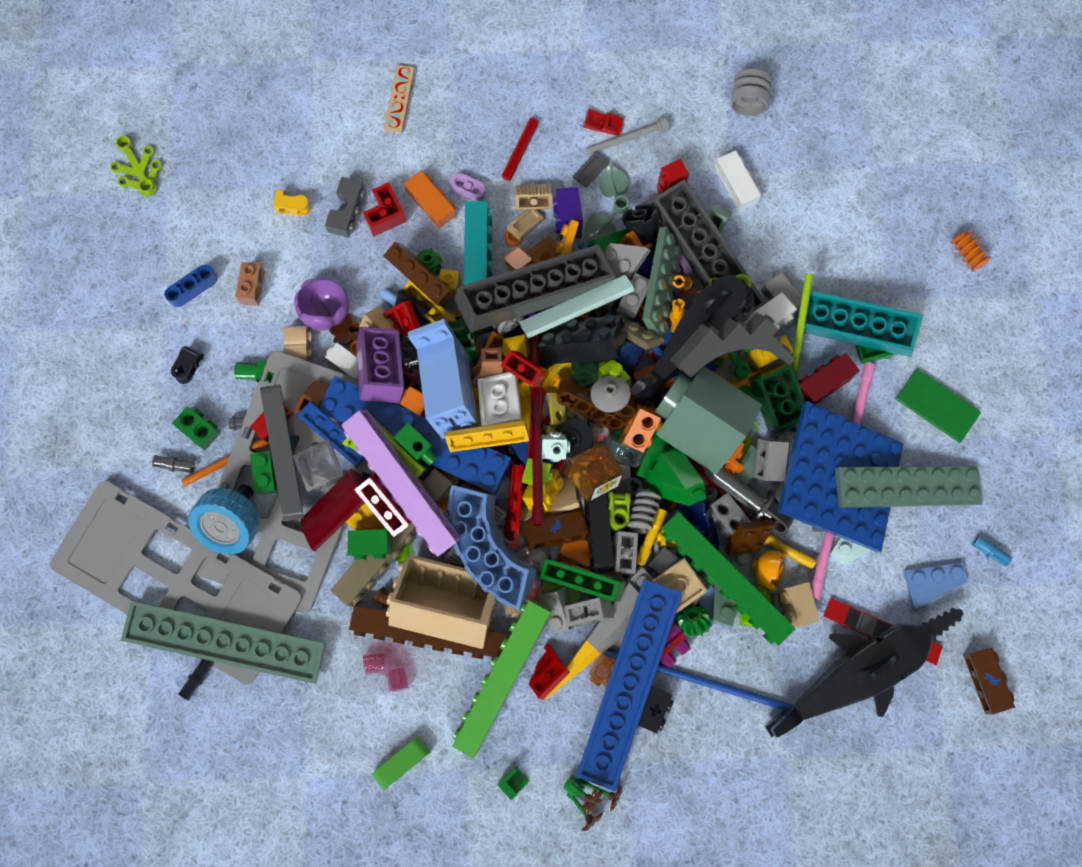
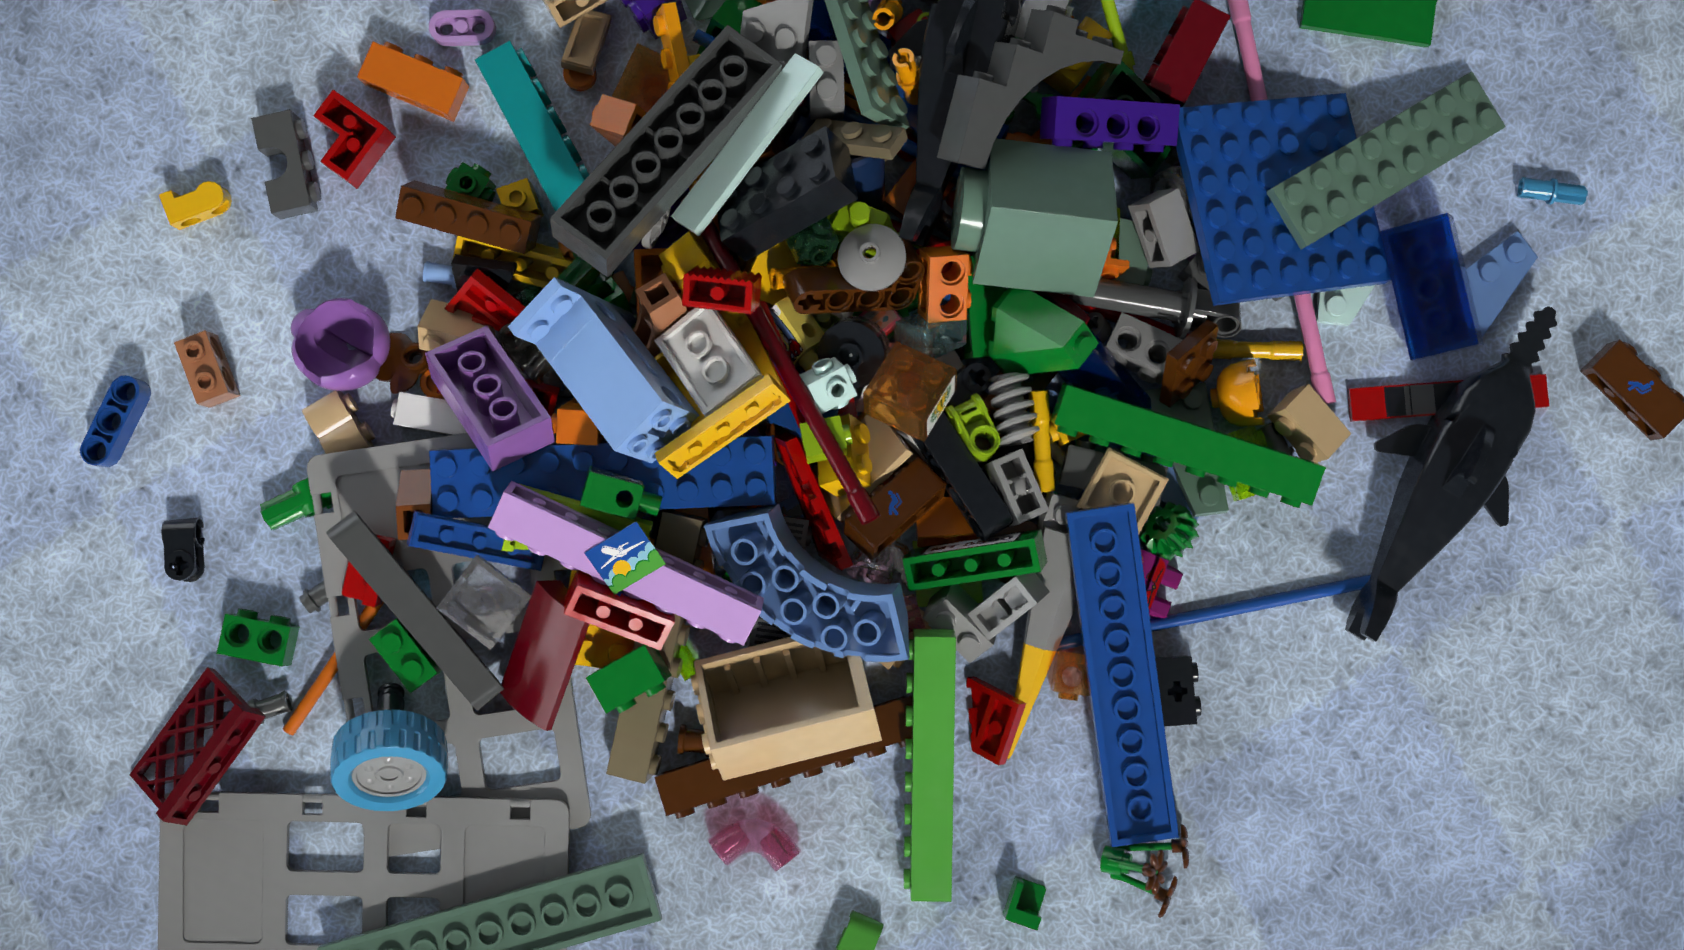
camera: 25 degrees left, 10 degrees up
(137, 473) = (209, 761): none -> dark red fence
(401, 477) = (625, 558): none -> sticker
(795, 403) = (1158, 123): none -> dark purple brick
(901, 566) = (1431, 287): none -> clear blue brick

